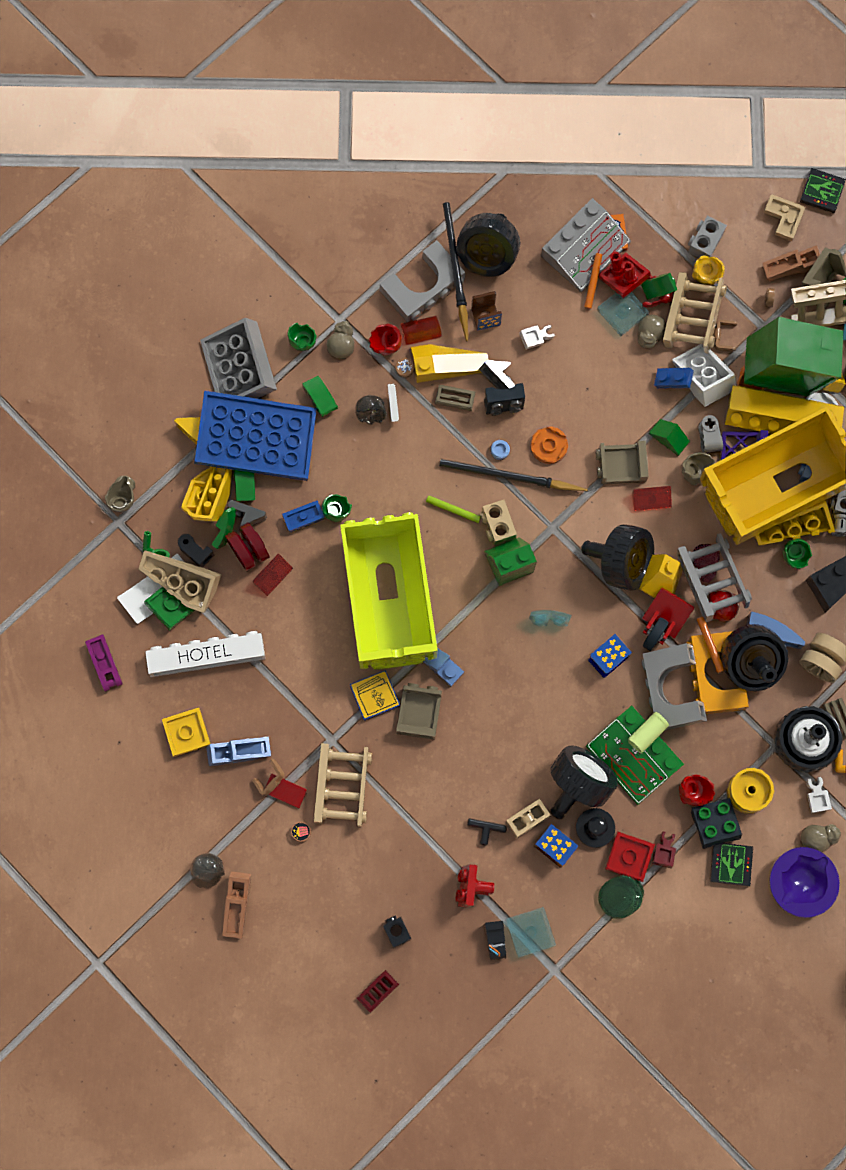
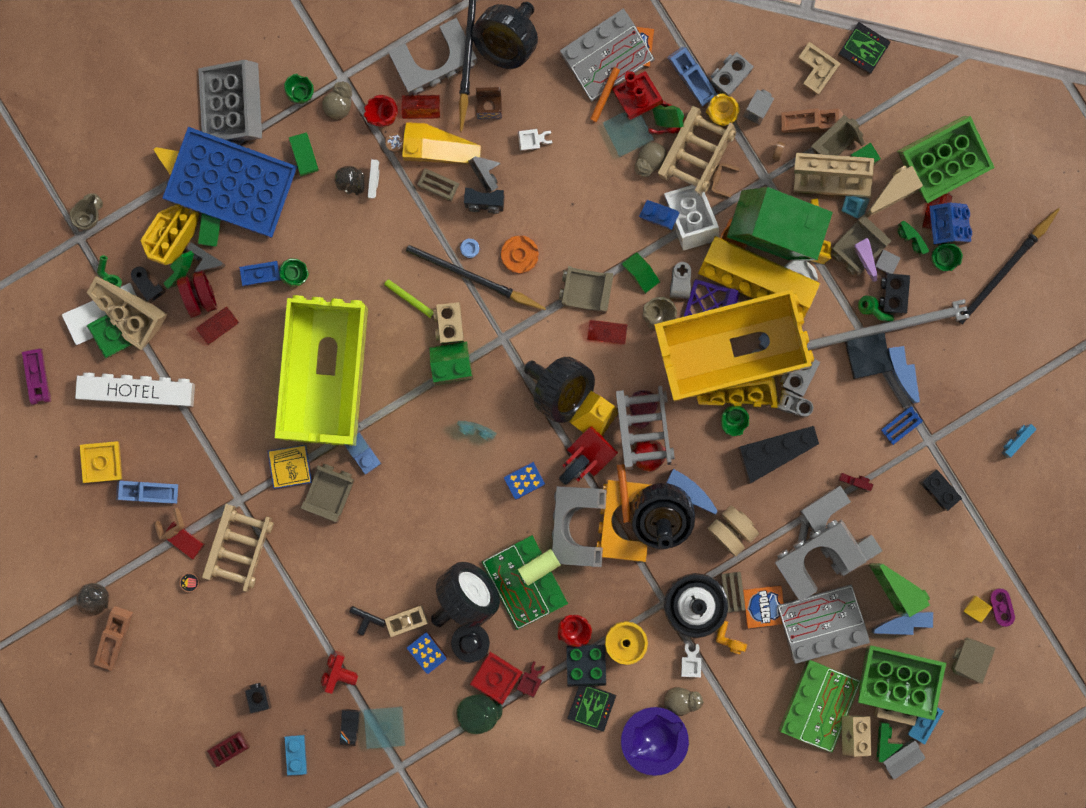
camera: 20 degrees right, 10 degrees up
(447, 981) = (295, 755): none -> dark azure plate
(670, 247) = (692, 75): none -> medium blue slope
(741, 260) = (759, 106): none -> light grey brick

